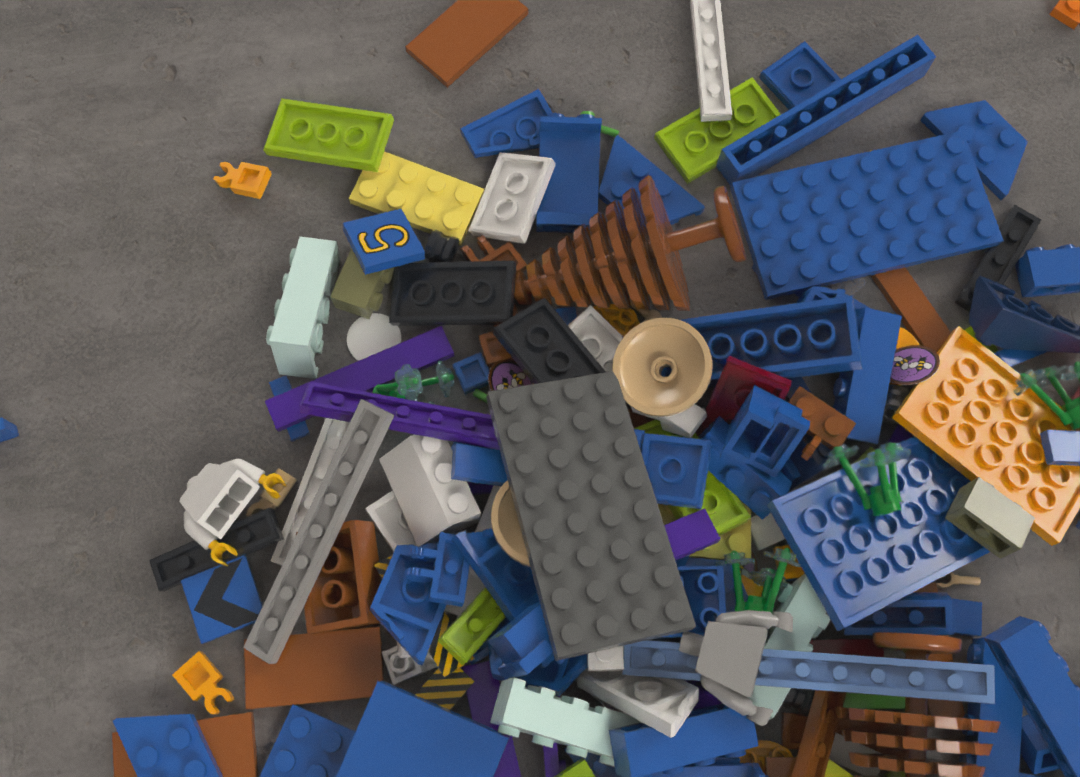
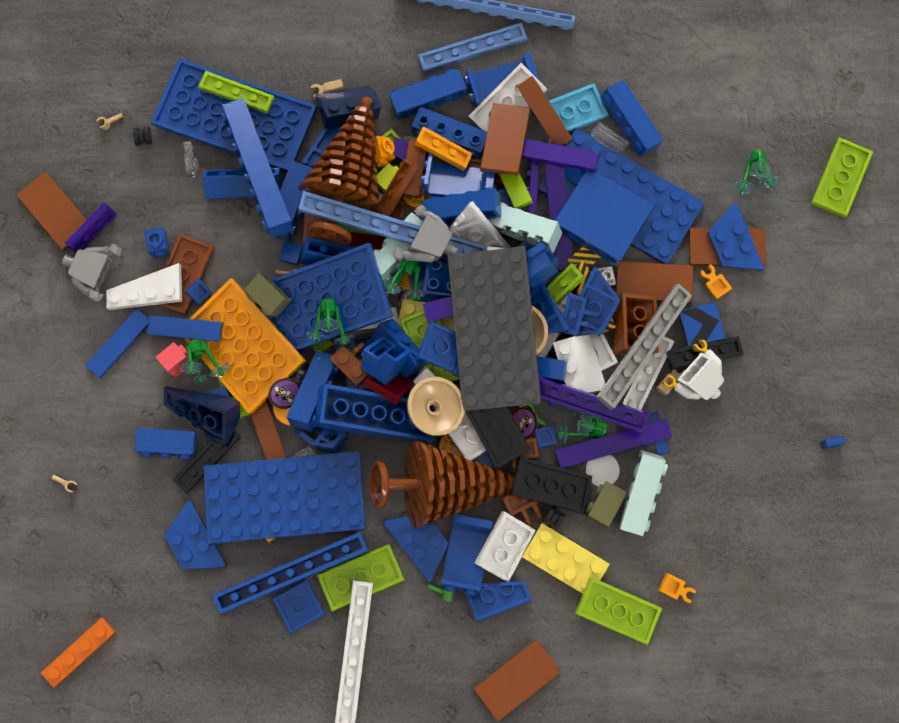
camera: 170 degrees left, 5 degrees up
(383, 241) = (590, 522): blue tile -> none

